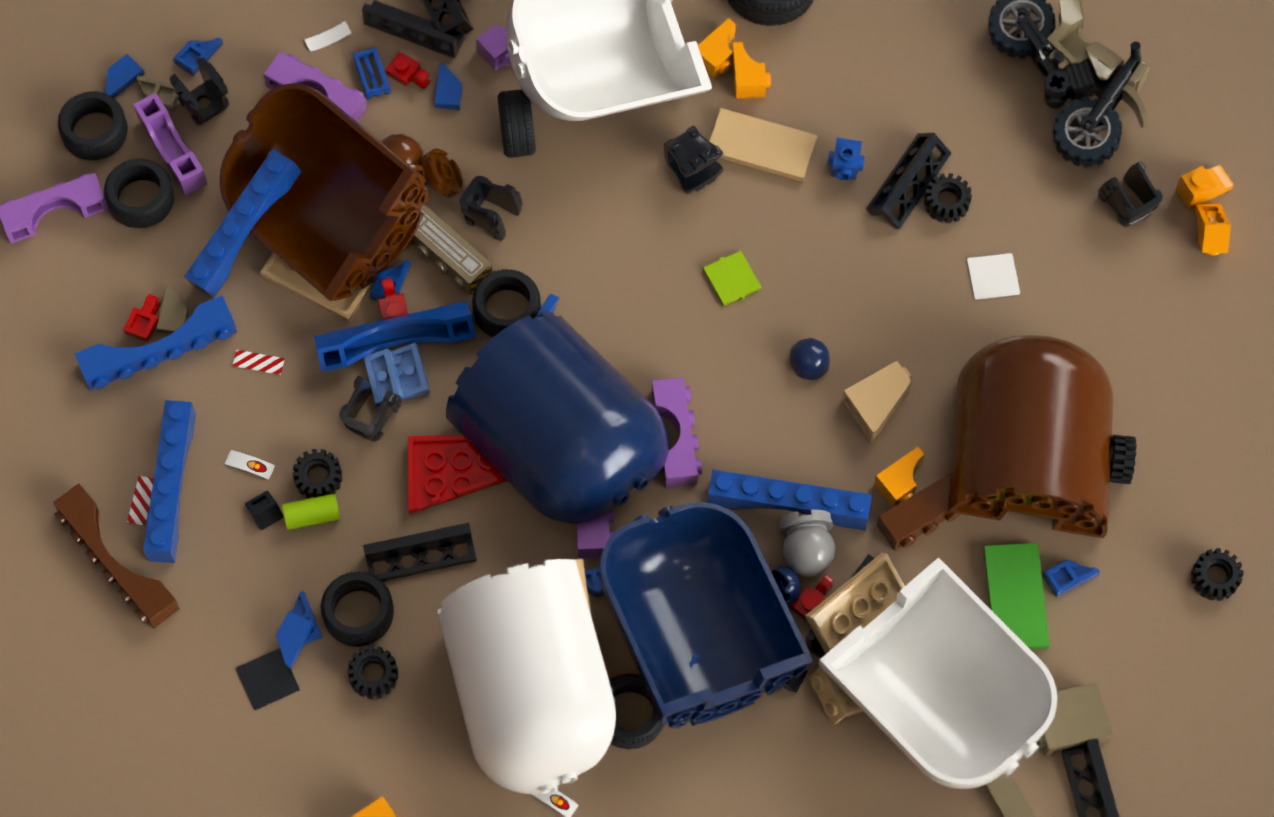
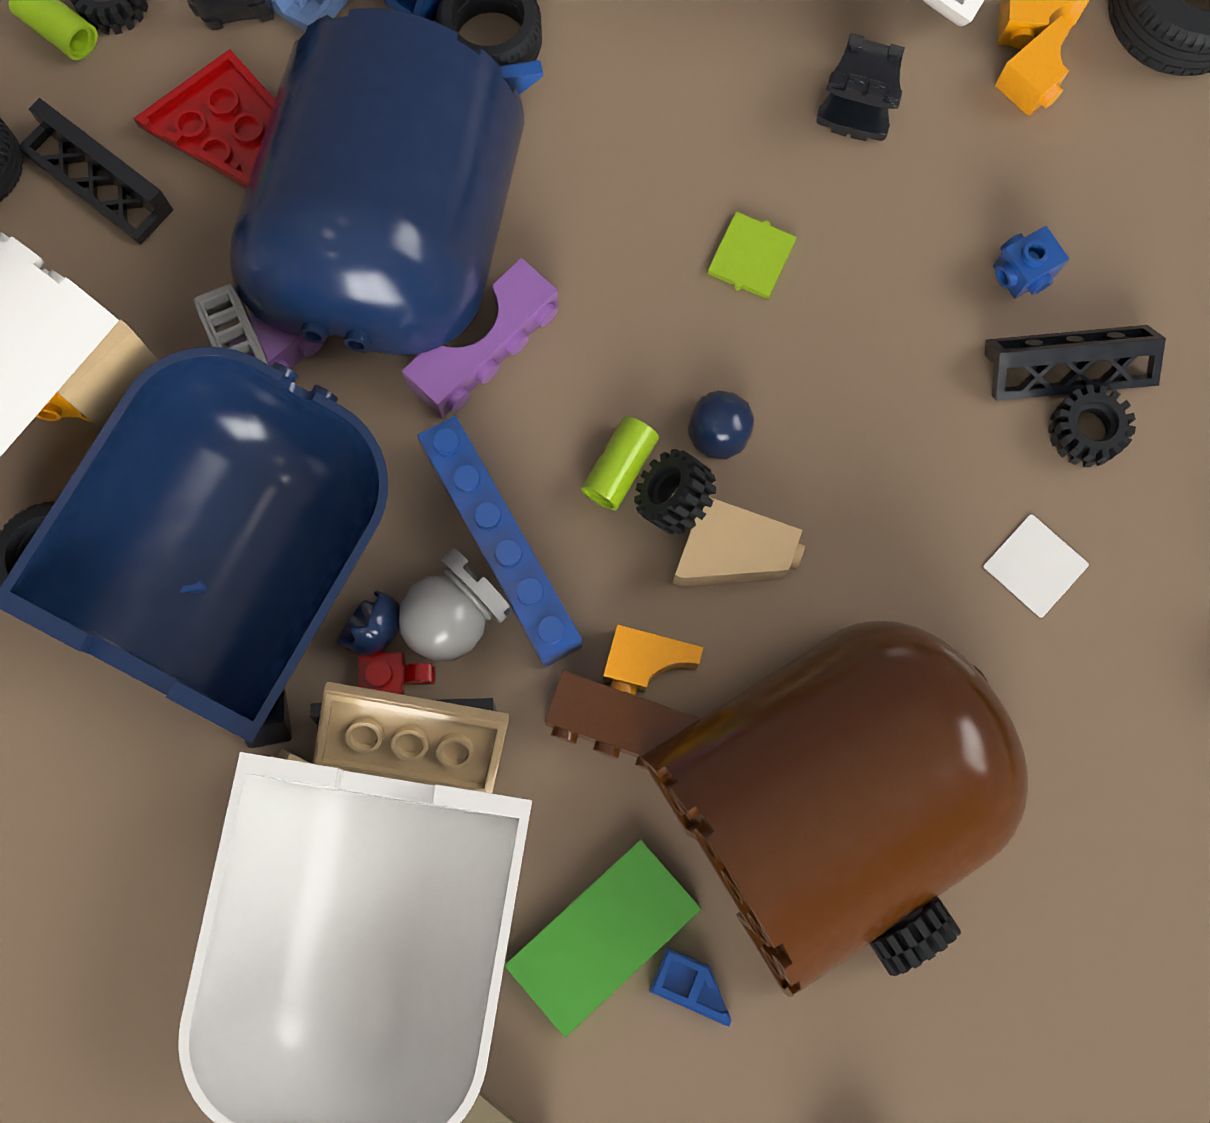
camera: 50 degrees right, 10 degrees up
(576, 529) = (222, 307): none -> light grey slope
(763, 144) = (960, 157): tan tile -> none
(793, 417) = (620, 463): none -> lime pin
(843, 397) = (688, 501): none -> black tyre

